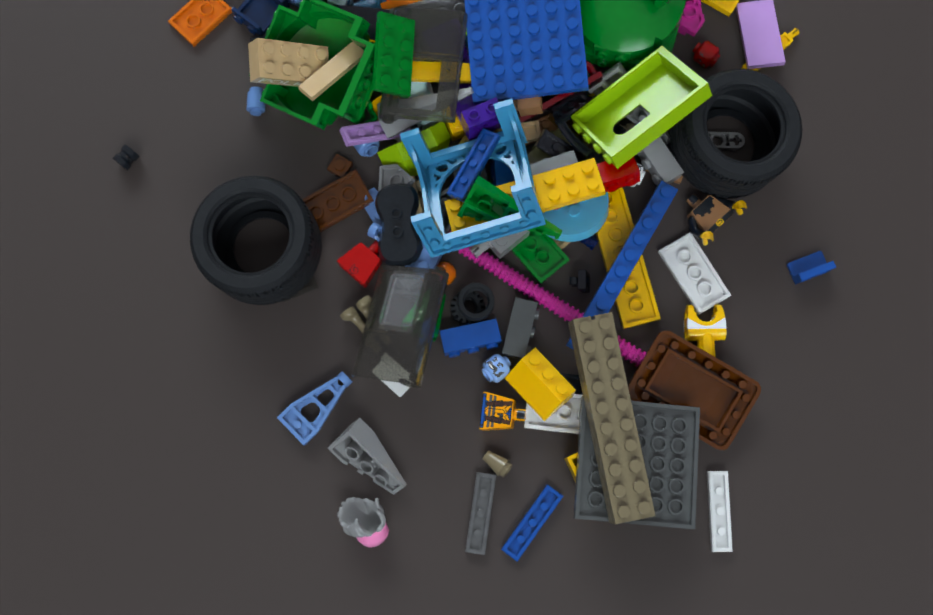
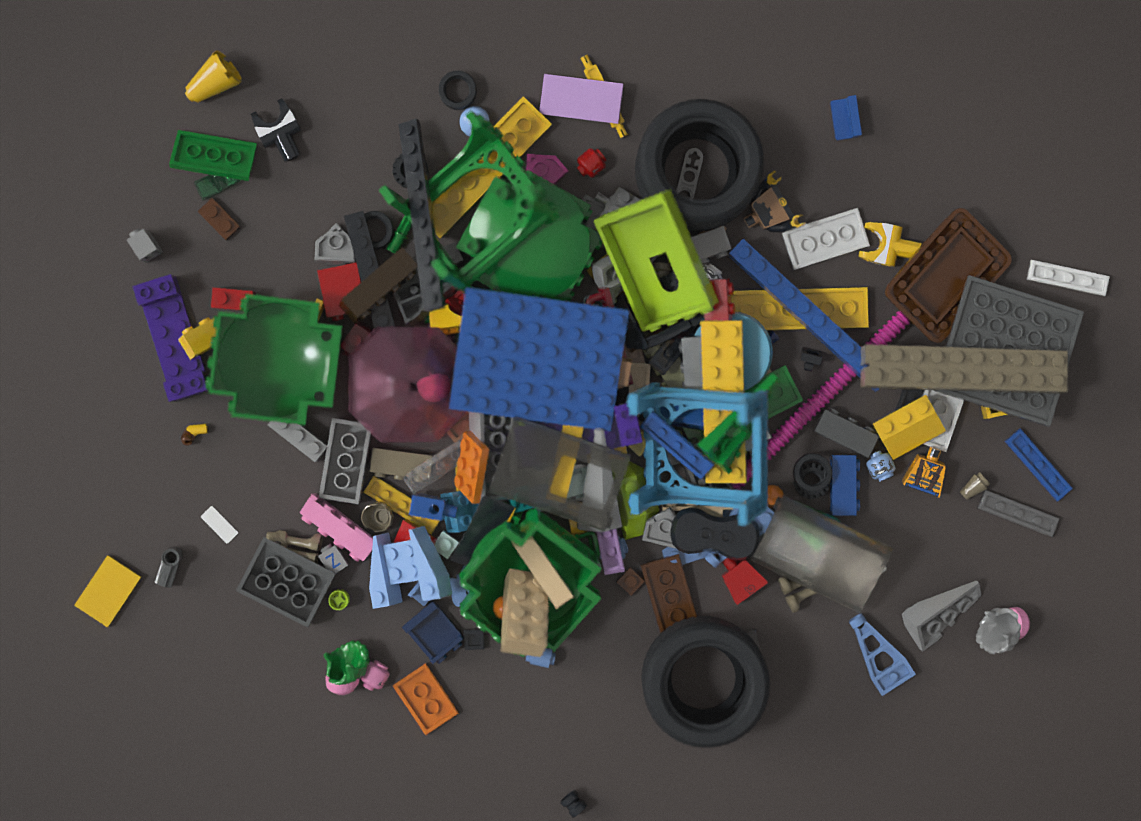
camera: 75 degrees left, 10 degrees up
(393, 54) = (550, 503): green plate -> none

